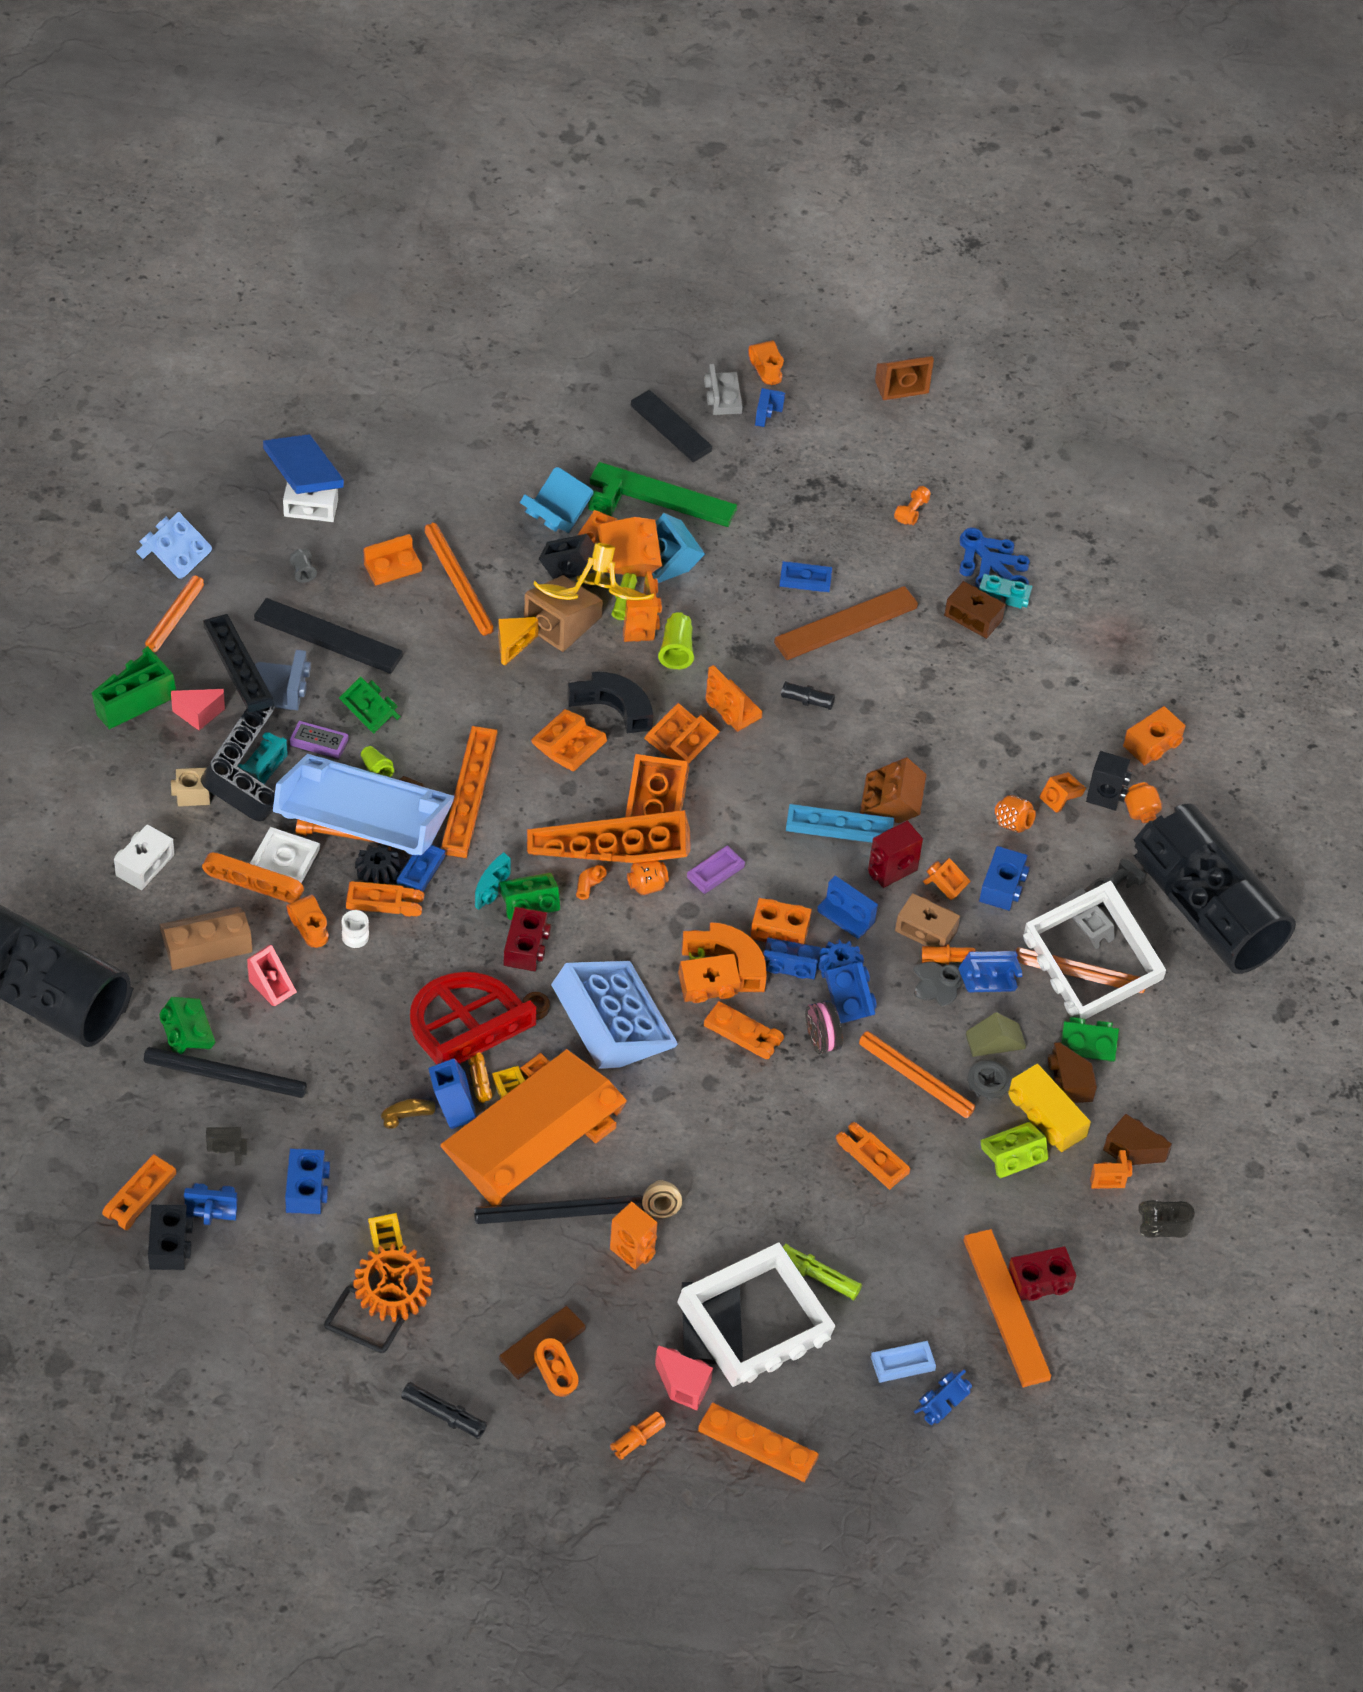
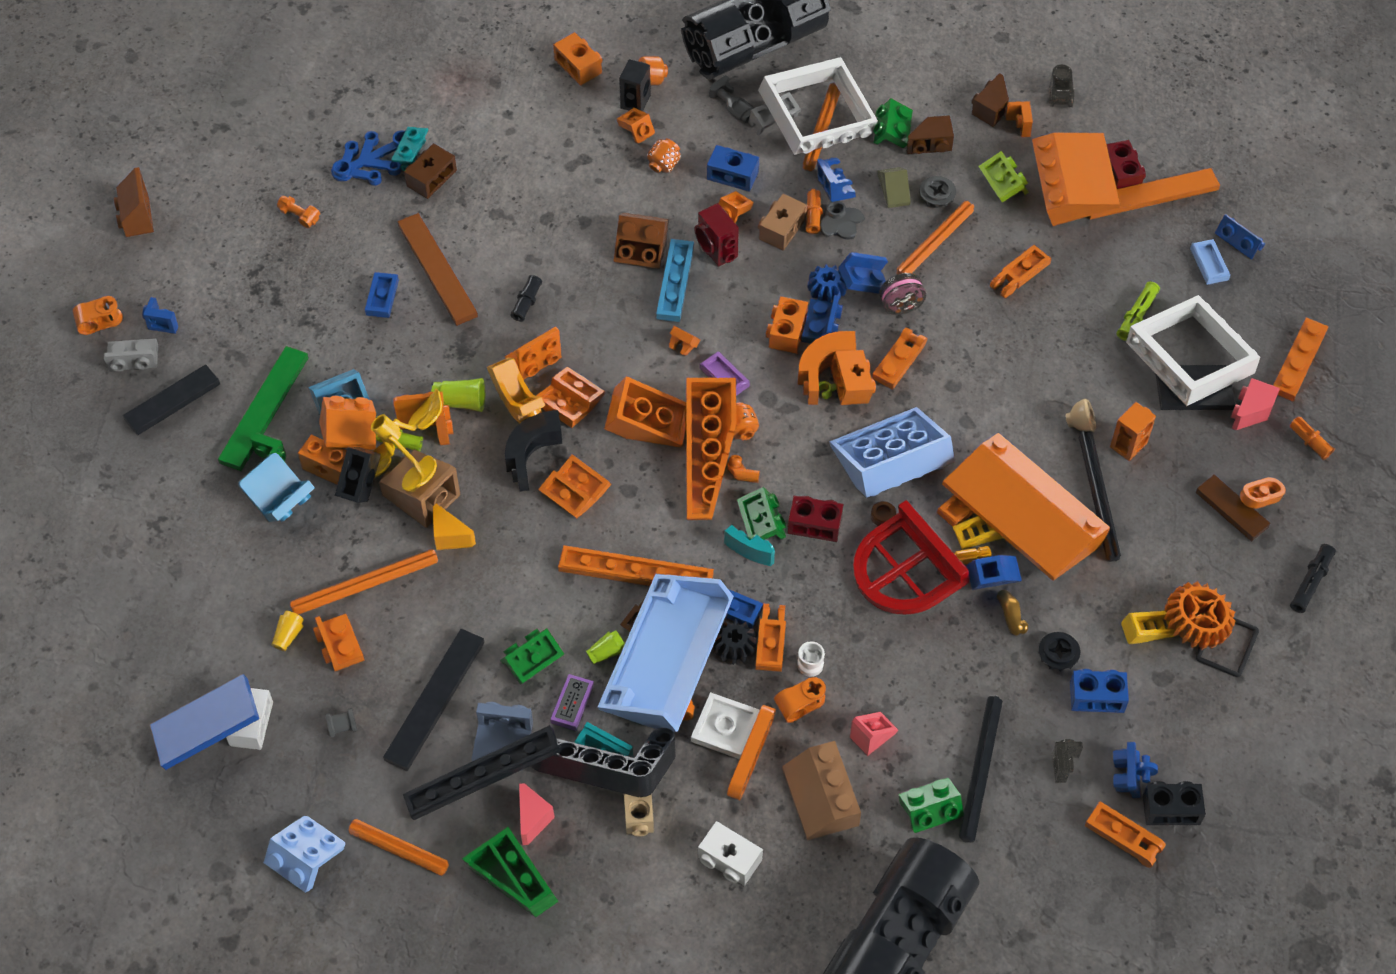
camera: 85 degrees left, 5 degrees up
(348, 1147) = (1066, 644): none -> black gear
(404, 522) = (287, 629): none -> yellow cone
(679, 687) = (513, 390): none -> light orange arch
(758, 830) = (680, 336): none -> orange tile
(848, 908) = (771, 275): blue bracket -> none
(1014, 1210) = (1075, 175): none -> orange slope
(1049, 1108) = (964, 152): yellow brick -> none

